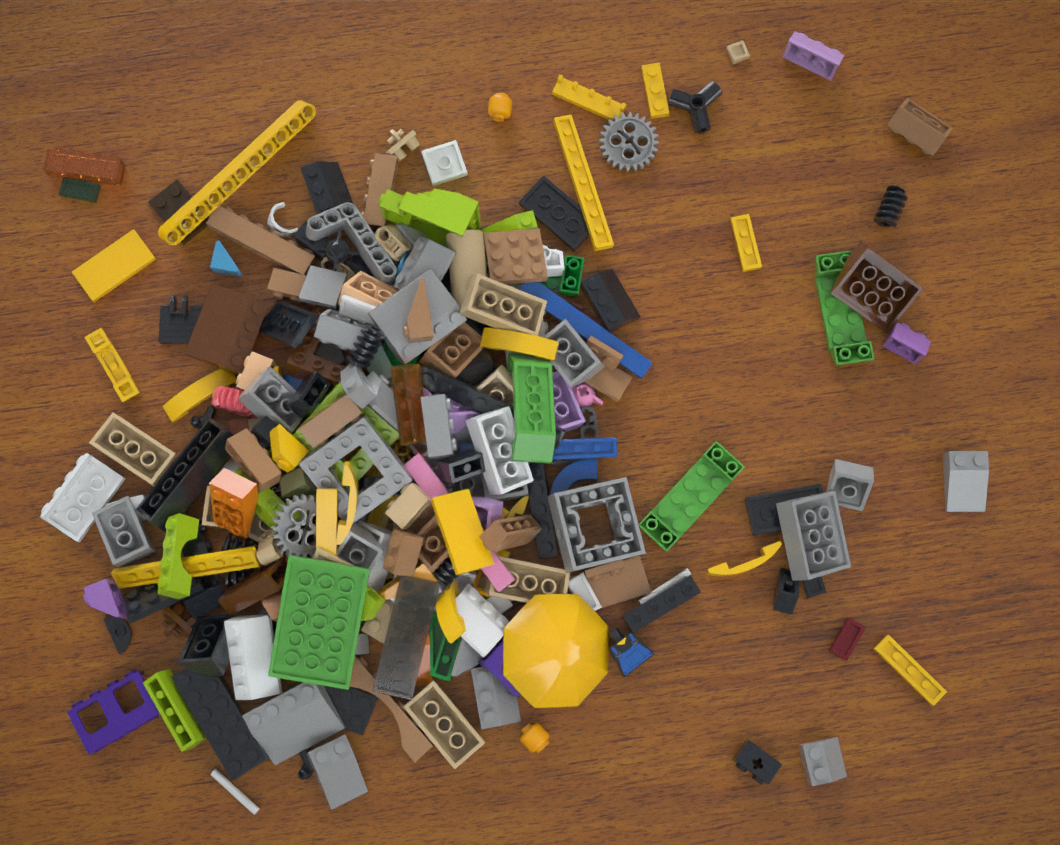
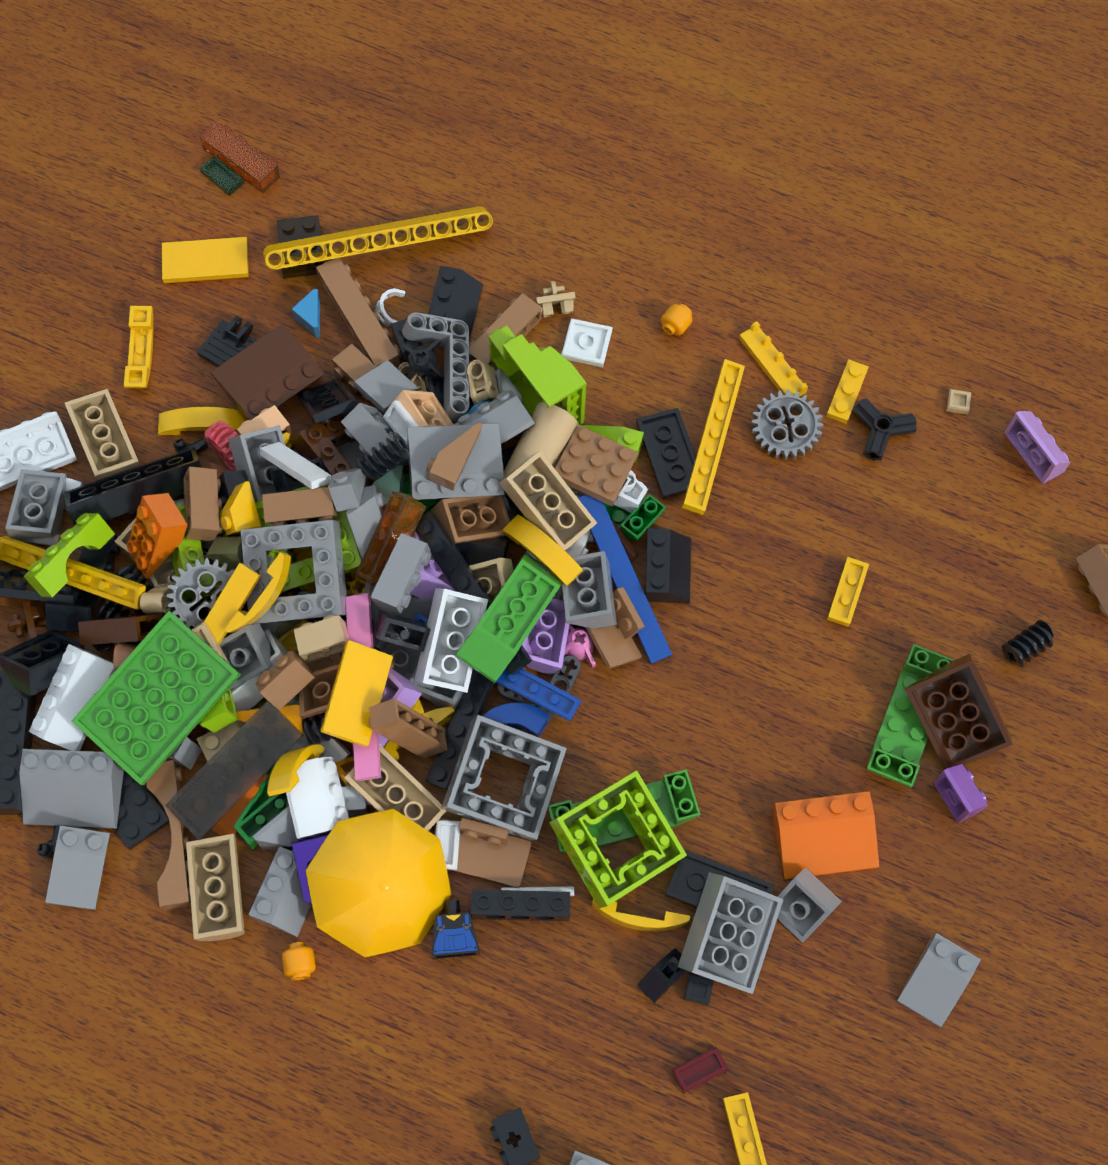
camera: 30 degrees right, 10 degrees down
(306, 391) = (295, 465): none -> white tile
(735, 511) = (648, 823): none -> lime brick
(834, 427) = (826, 834): none -> orange slope

